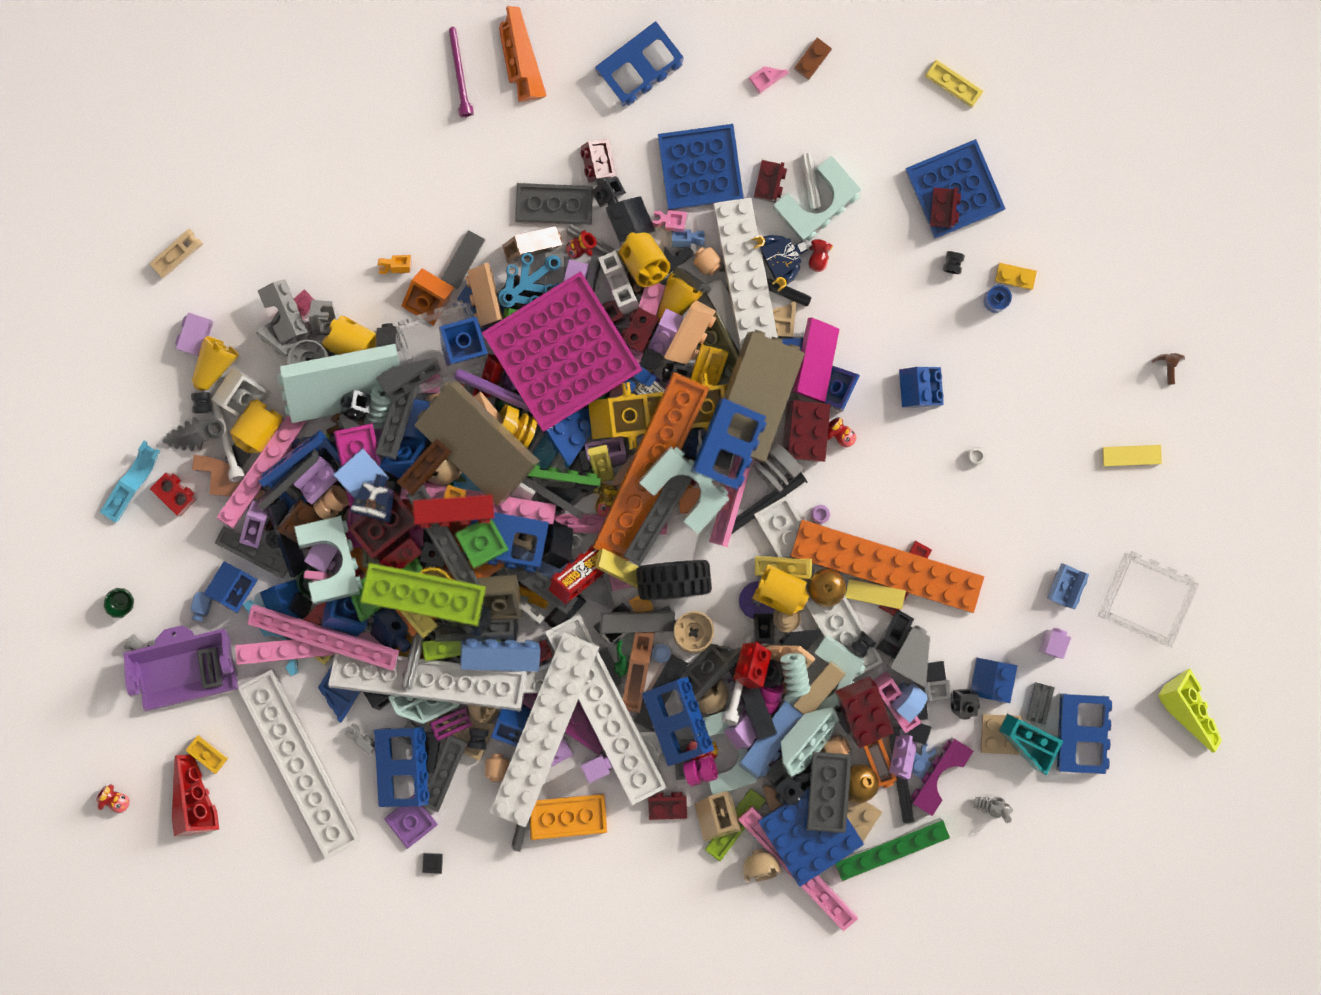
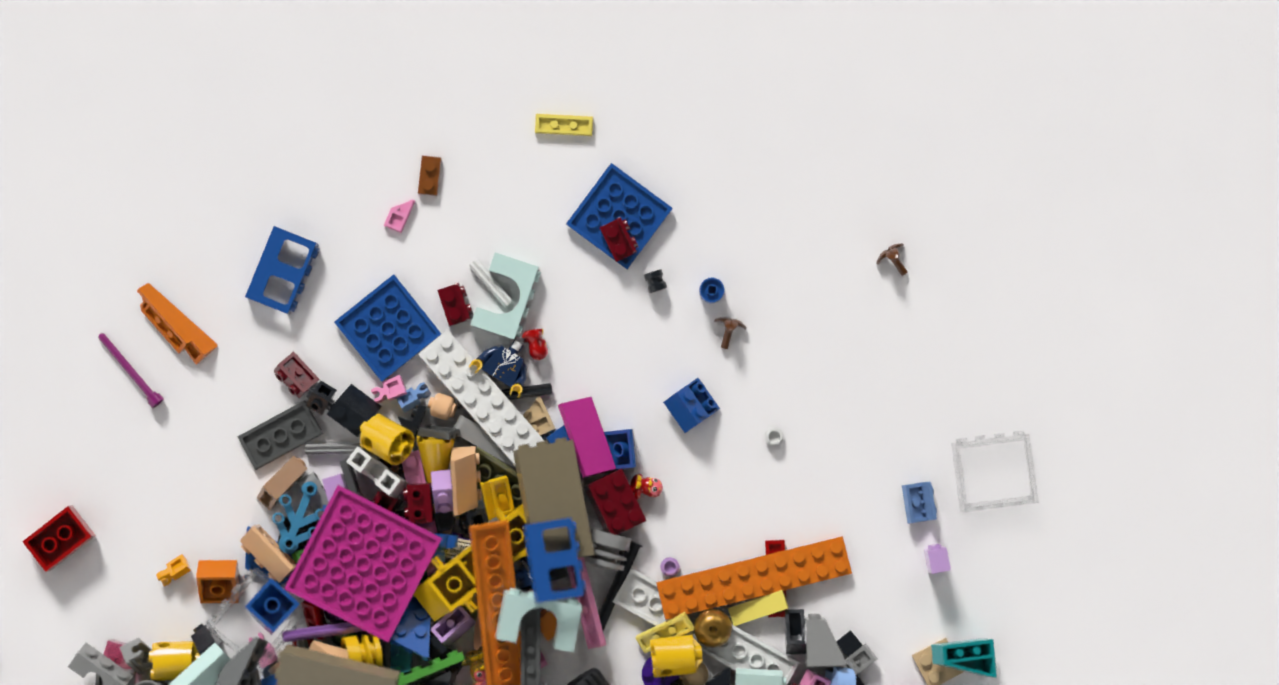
camera: 35 degrees left, 0 degrees up
(314, 178) = (59, 538): none -> red brick
(463, 259) = (230, 530): dark grey tile -> none
(583, 244) = (323, 460): red animal -> none
(601, 463) = (454, 638): light yellow tile -> none
(861, 648) = (772, 663): black wheel -> none
(965, 703) = (890, 656): black brick -> none
(994, 679) = (903, 621): blue slope -> none
(995, 338) = (730, 325): none -> reddish brown plant
(1015, 276) = (716, 260): yellow plate -> none
(1047, 704) = (960, 632): dark grey tile -> none
(1072, 733) = (997, 627): blue window -> none
(1132, 455) = (907, 355): light yellow tile -> none
(1185, 703) = (1080, 543): neon yellow wedge -> none

